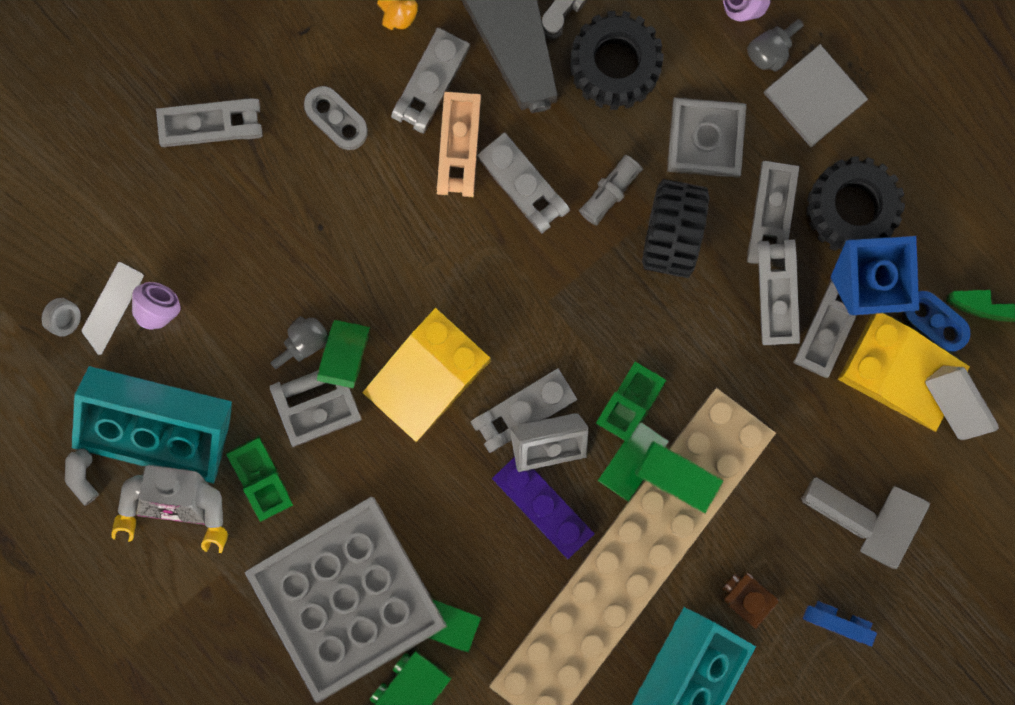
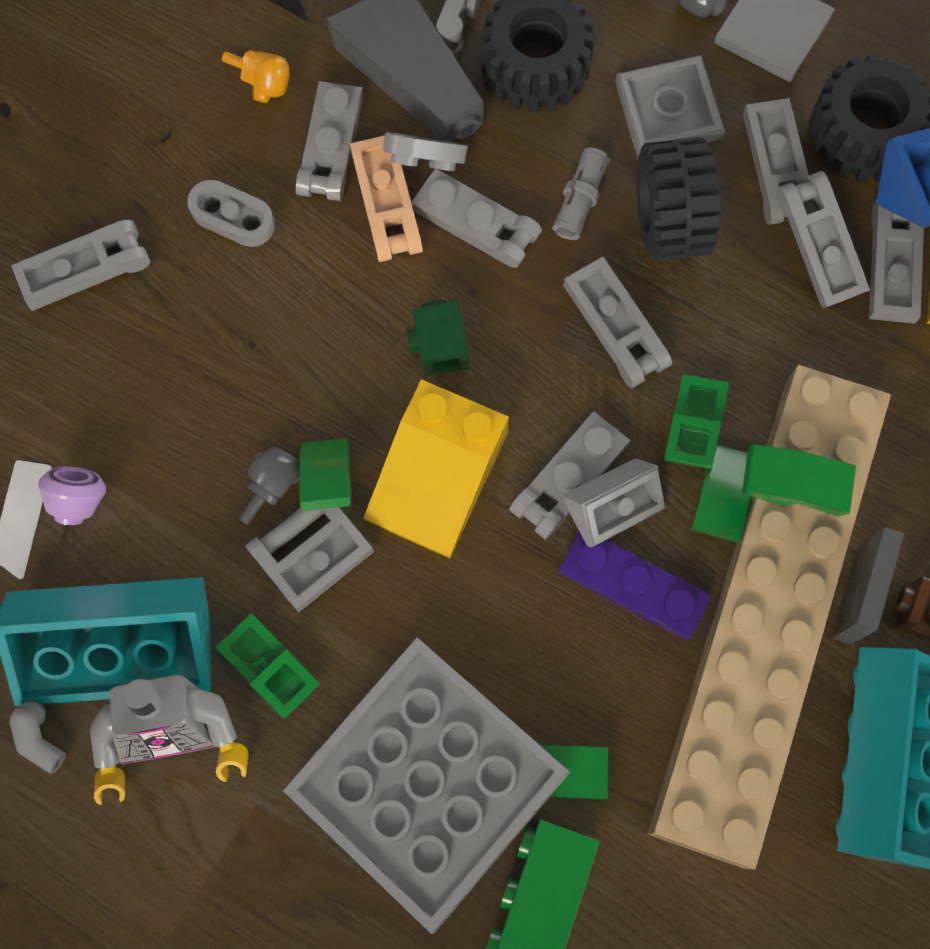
camera: 15 degrees left, 10 degrees down
(461, 272) = (439, 337): none -> dark green brick
(500, 117) = (409, 148): none -> light grey plate
(600, 302) = (616, 321): none -> light grey plate
(704, 566) = (868, 586): none -> dark grey tile

